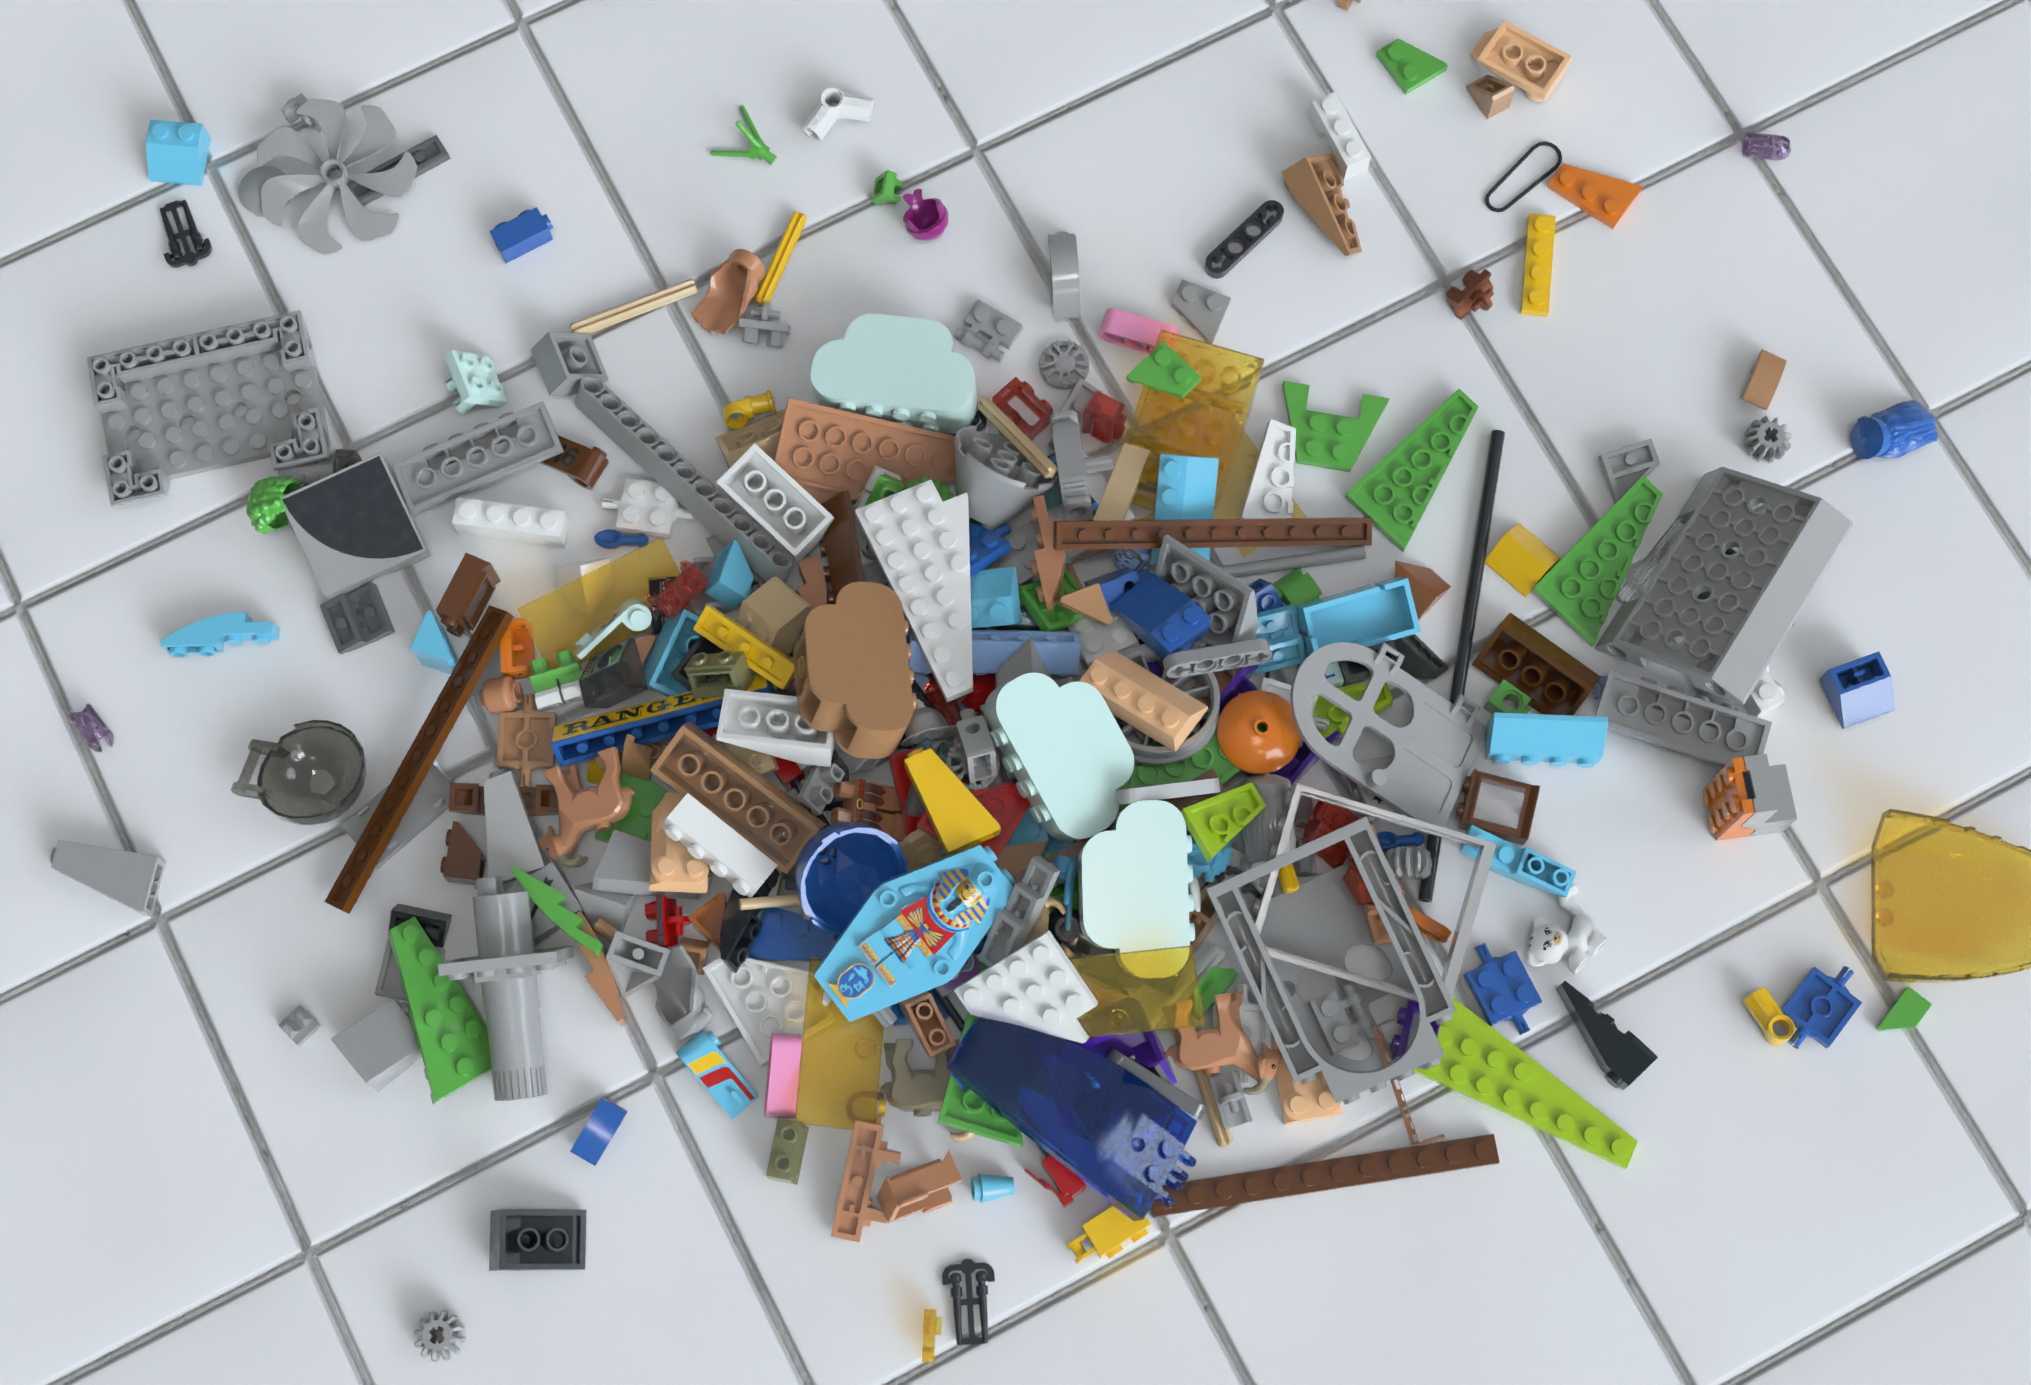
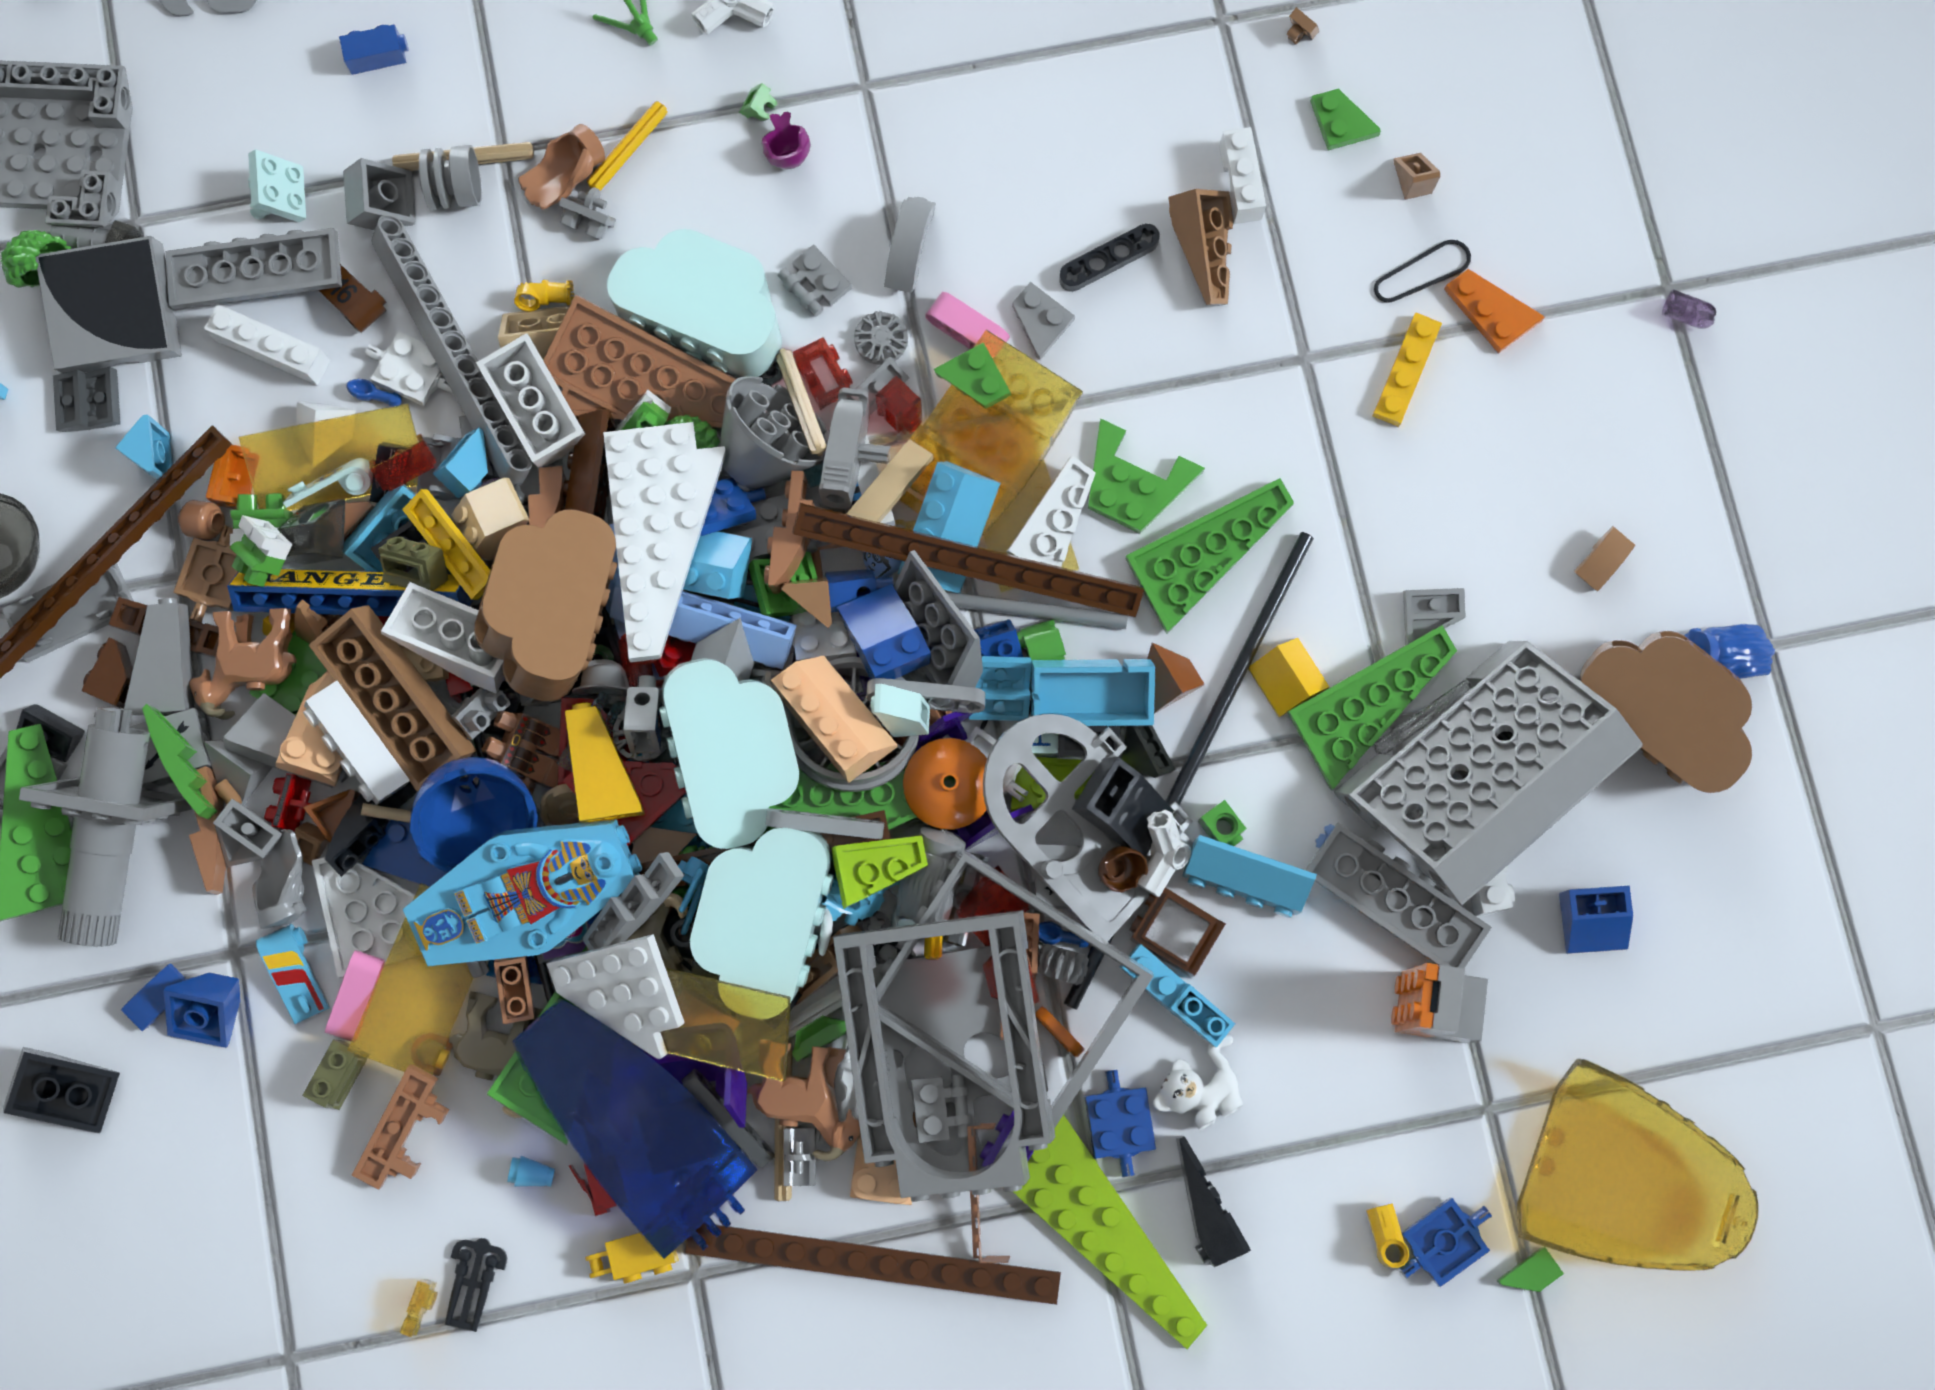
camera: 15 degrees right, 5 degrees up
(467, 595) = (195, 407): reddish brown window -> none
(572, 703) = (259, 551): none -> hips
(632, 328) = (444, 177): none -> light grey wheel
(645, 1129) = (203, 1008): none -> blue slope
(918, 1189) = (450, 1156): nougat piece -> none
(1202, 676) = (901, 711): none -> light aqua slope
(1419, 706) = (1119, 804): none -> black slope
(1436, 761) = (1122, 868): none -> reddish brown hair
(1469, 739) = (1166, 850): none -> white piece
(1474, 295) = (1329, 383): copper hips -> none
(1522, 60) = (1461, 147): light nougat slope -> none
(1536, 668) = (1264, 798): reddish brown slope -> none
(1769, 449) = (1587, 612): light grey gear -> none
(1872, 482) = (1678, 706): none -> medium nougat brick

